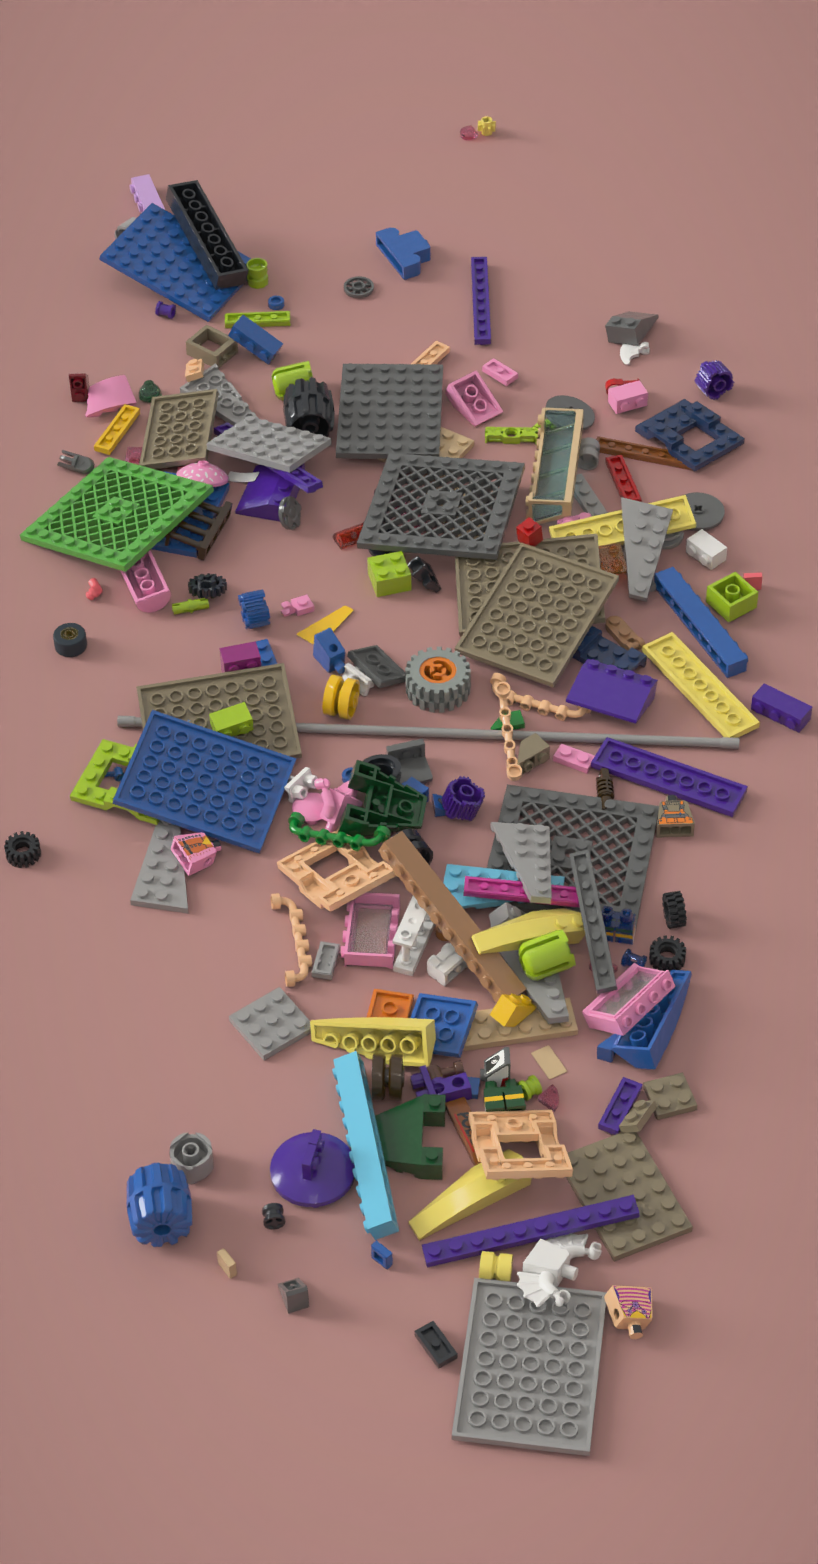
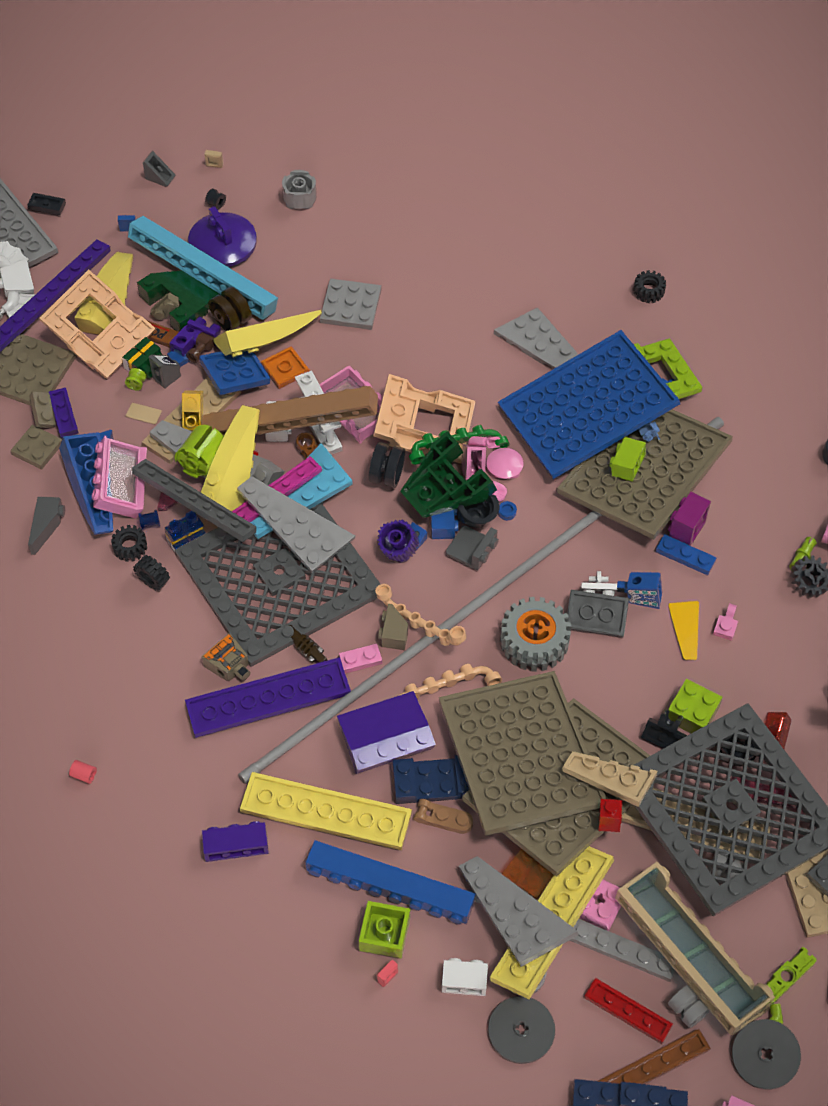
camera: 135 degrees right, 10 degrees up
(159, 1204) = (280, 143): blue wheel -> none
(194, 851) = (535, 361): bright pink torso -> none
(254, 609) = (745, 577): blue brick -> none
(298, 785) = (532, 468): white hips -> none
(298, 931) = (403, 369): light nougat bar -> none
(326, 960) = (362, 363): light grey plate -> none
(341, 697) = (583, 551): yellow wheel -> none
(436, 1129) = (164, 306): none -> dark tan piece
(496, 1266) = (50, 260): light yellow wheel -> none
(503, 547) = (619, 780): none -> tan wing
(516, 721) = (443, 654): green tile -> none
(550, 1098) = (117, 388): clear pink tile -> none
(720, 1019) = (45, 521): none -> dark grey slope

